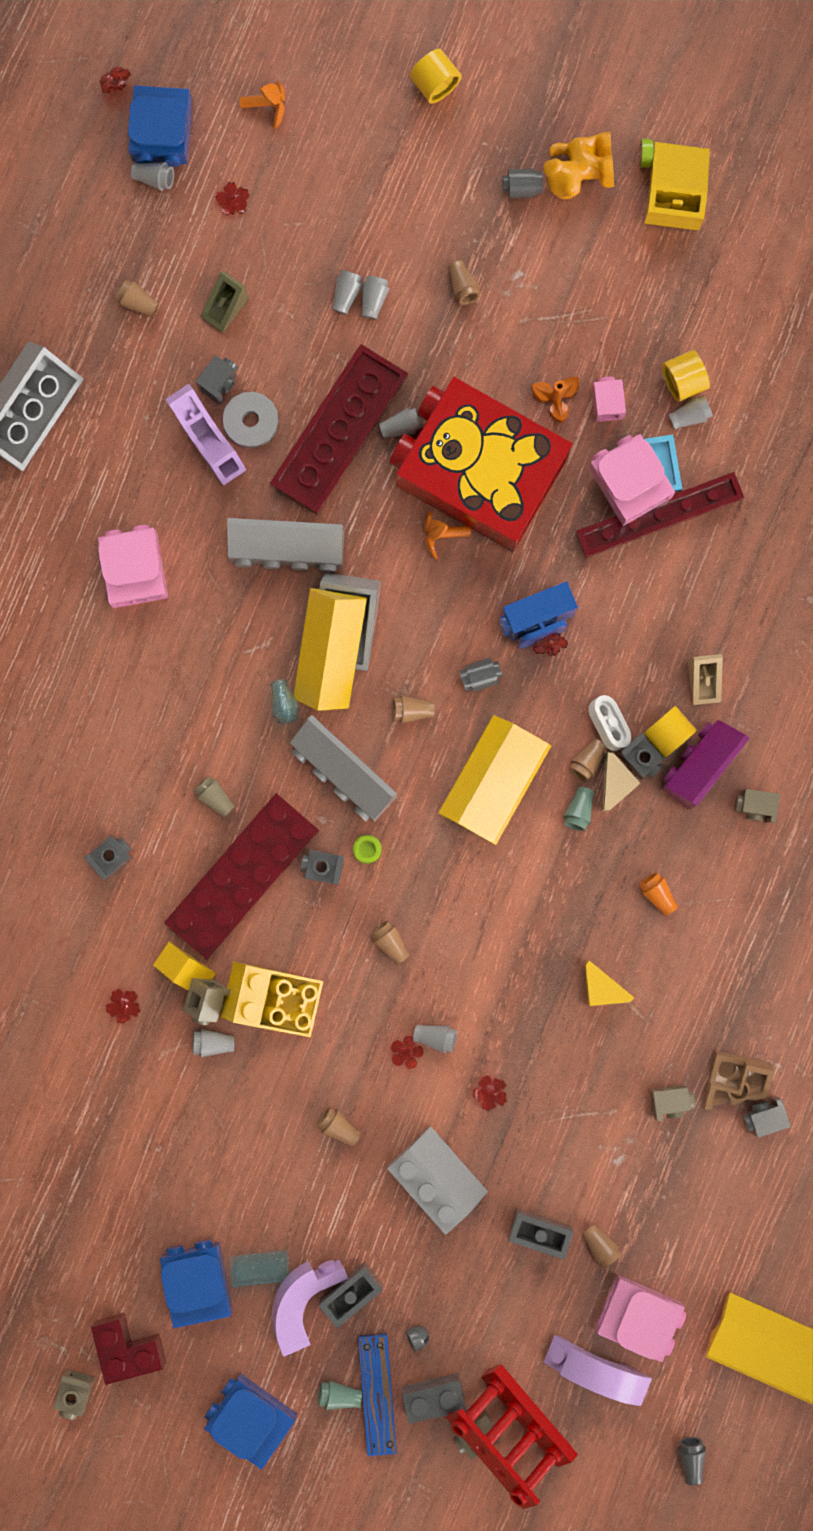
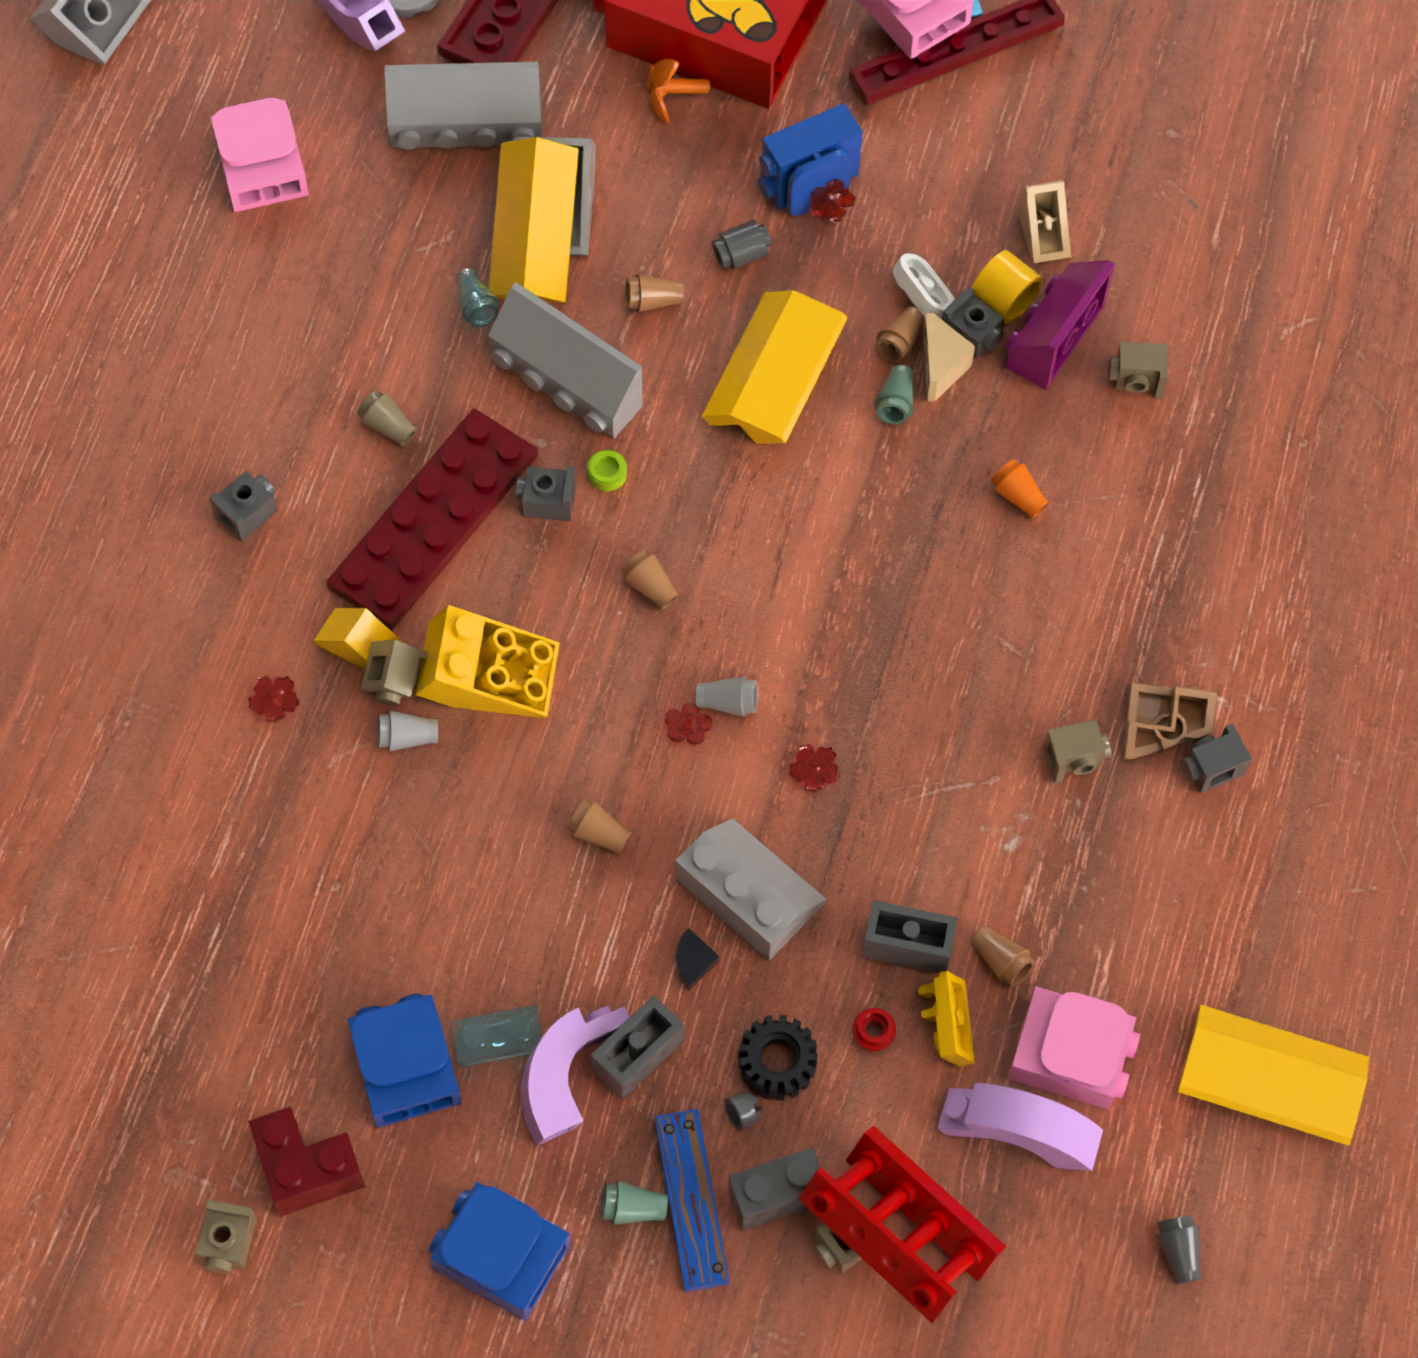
camera: 10 degrees left, 20 degrees down
(394, 1226) = (694, 959): none -> black tile
(443, 1322) = (777, 1032): none -> black tyre
(509, 1298) = (876, 1017): none -> red plate
(562, 1294) = (952, 1018): none -> yellow plate
(601, 988) = (960, 612): yellow slope -> none

